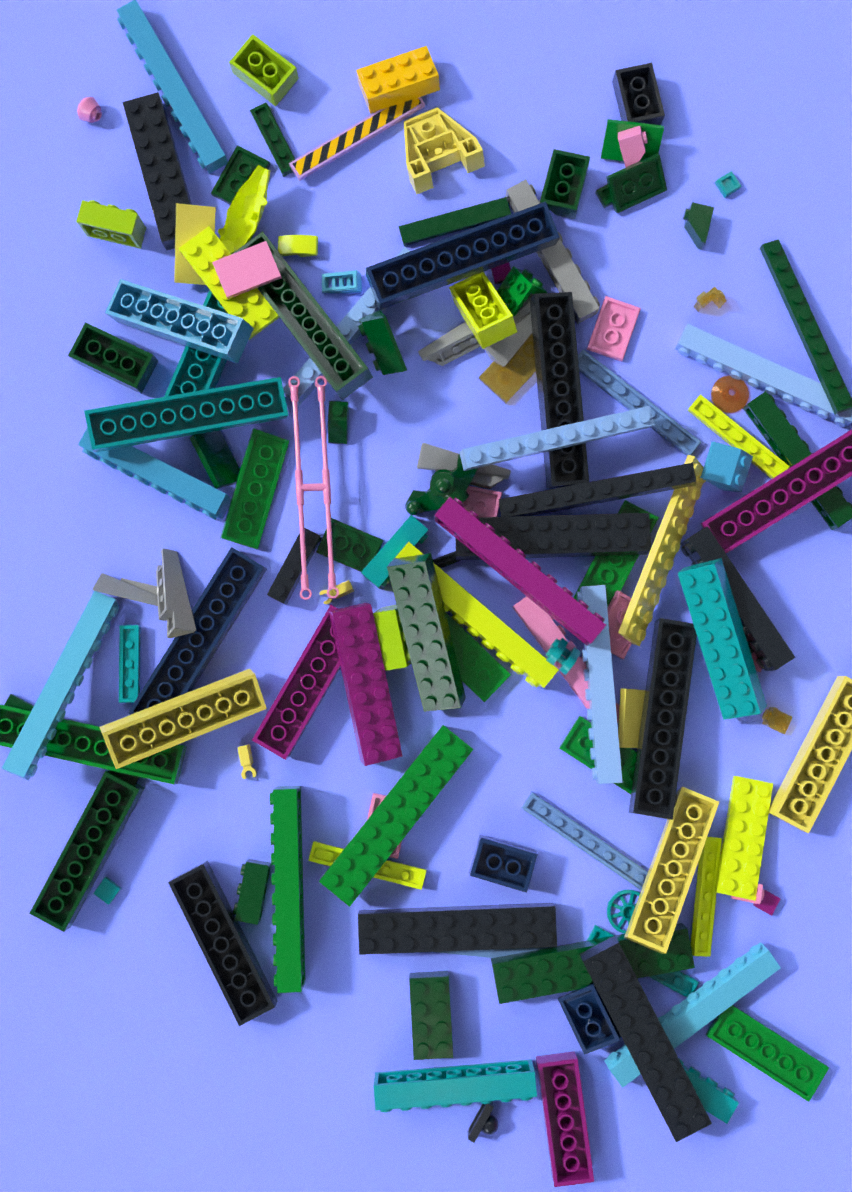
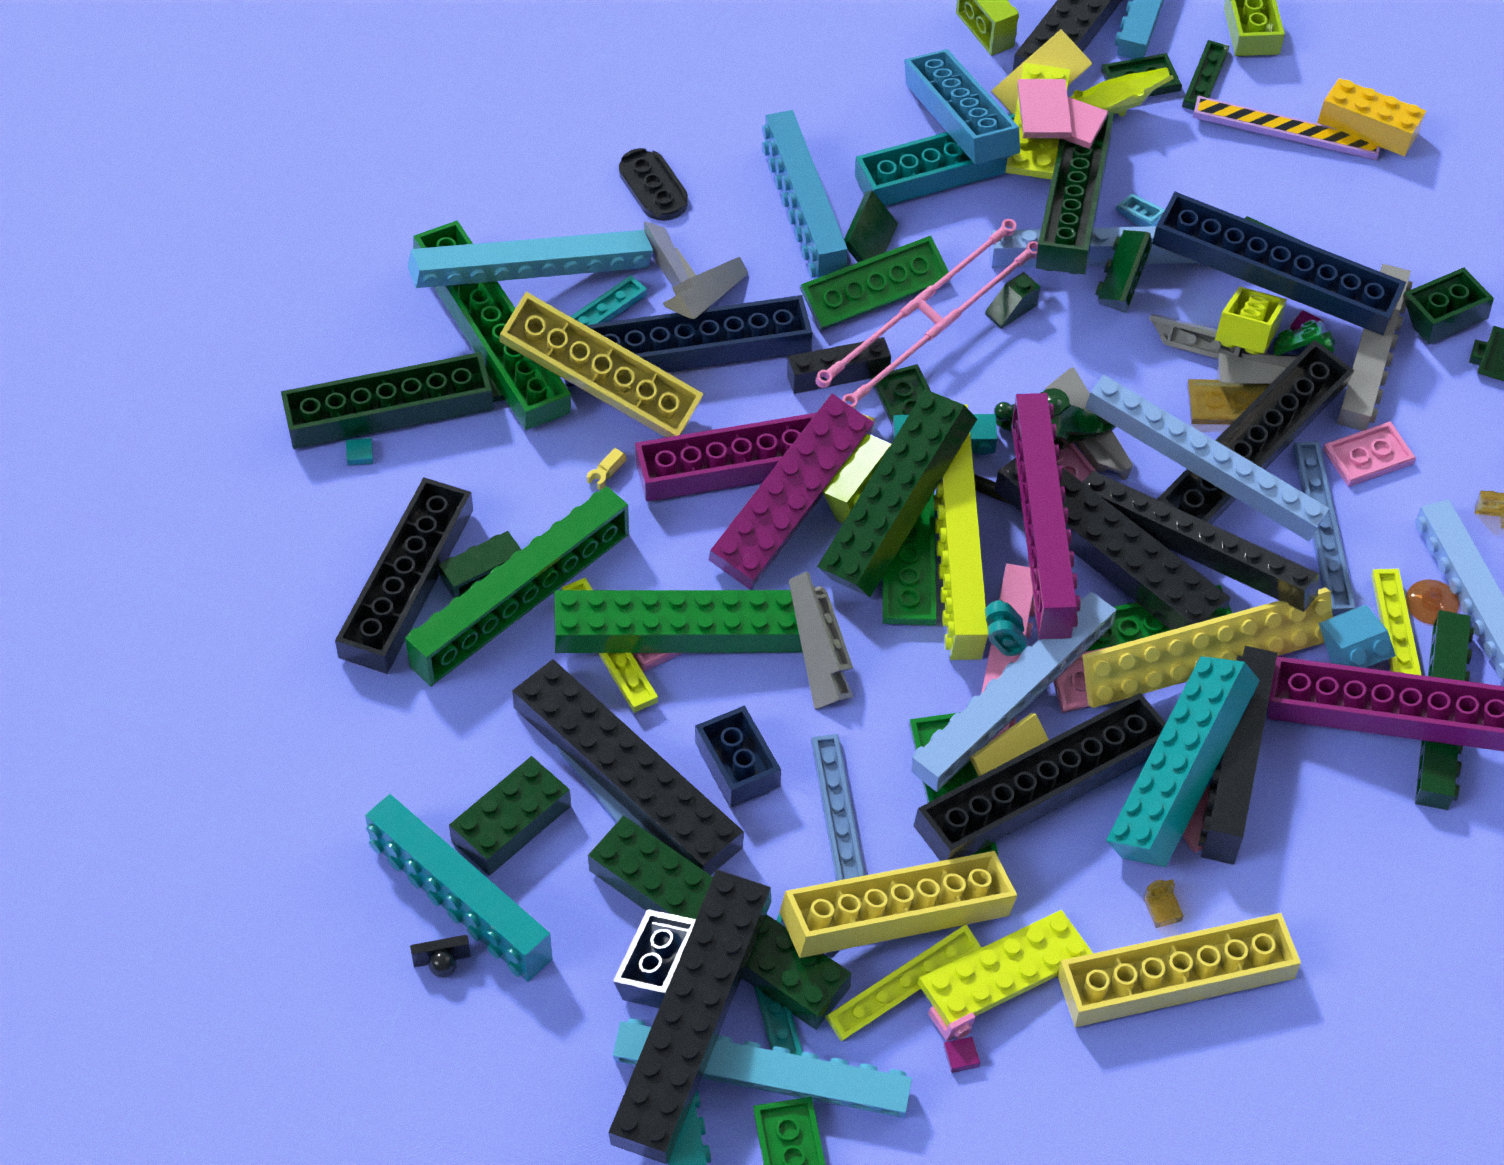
camera: 45 degrees right, 30 degrees down
(58, 545) = (653, 184): none -> black tile
(113, 358) = (871, 97): dark green brick -> none
(186, 414) = (886, 167): teal brick -> none
(231, 278) = (1044, 108): none -> bright pink tile
(298, 245) = (1135, 156): neon yellow slope -> none
(437, 142) = (1352, 189): light yellow wedge -> none
(477, 757) = (821, 642): none -> light grey wedge
(565, 1119) = (521, 1027): magenta brick -> none

